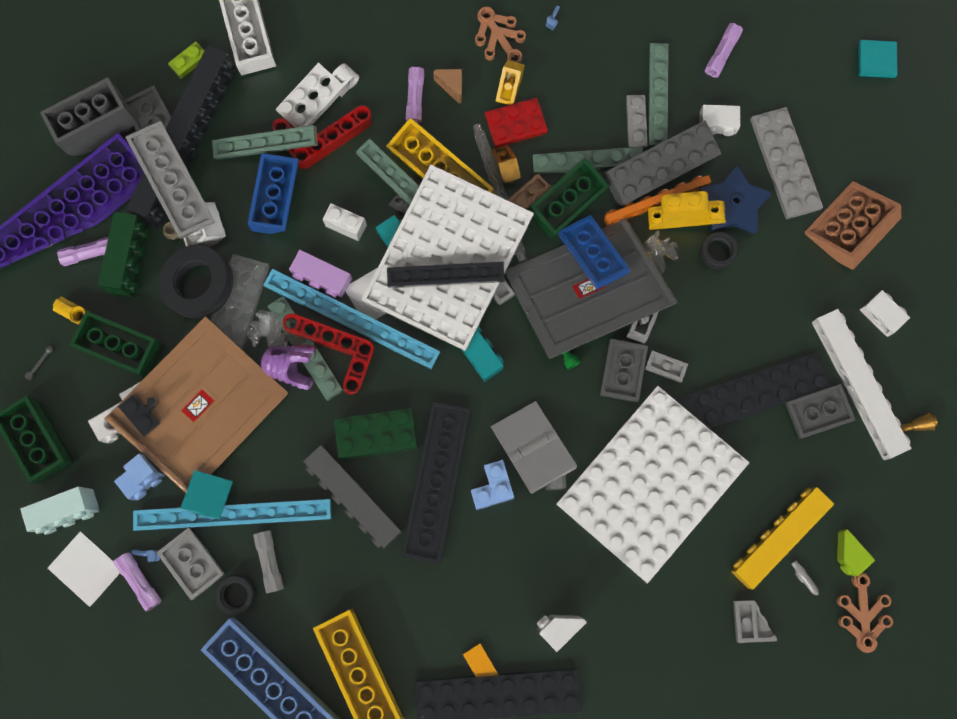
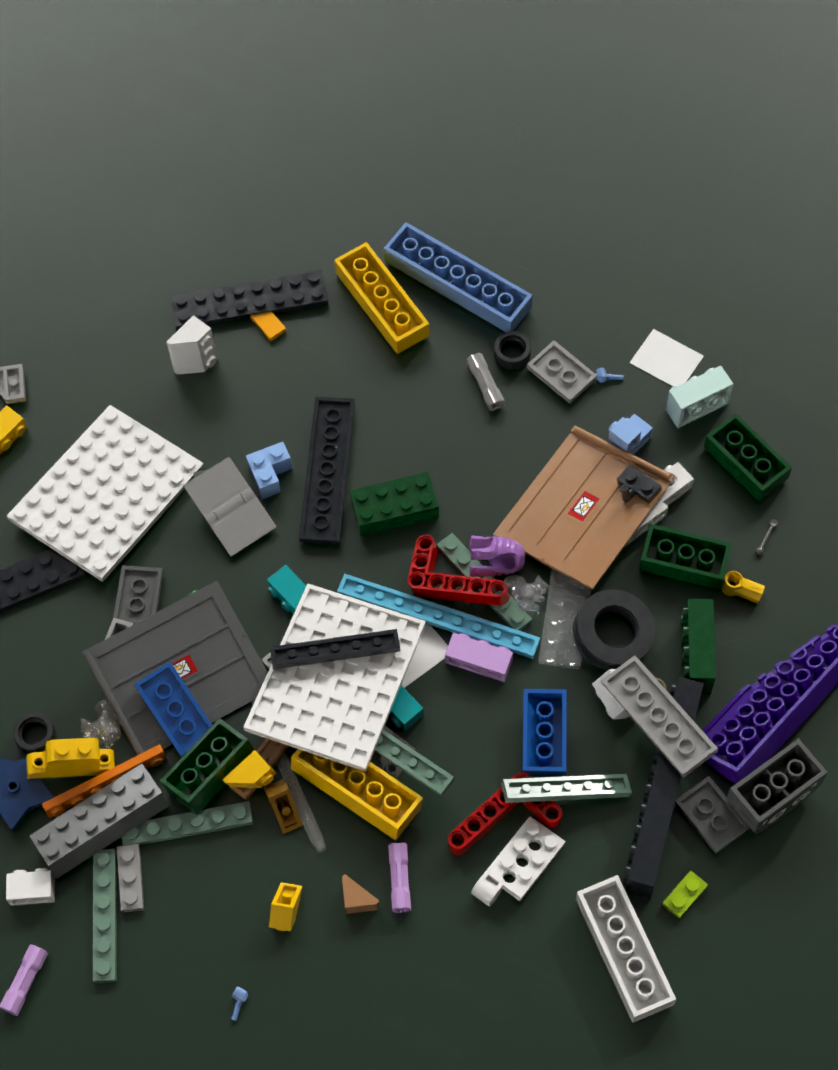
camera: 175 degrees right, 15 degrees down
(75, 254) = (758, 648): lavender axle -> none
(145, 593) = (621, 360): lavender axle -> none
(206, 495) = (556, 426): teal tile -> none
(234, 515) = (529, 417): medium azure plate -> none
(344, 222) = (460, 715): white brick -> none
(352, 496) = (410, 445): dark grey brick -> none
(498, 34) = (304, 971): nougat plant -> none
(516, 122) = (275, 861): red plate -> none
(529, 184) = (251, 773): none -> yellow slope
(666, 366) = (92, 605): light grey plate -> none

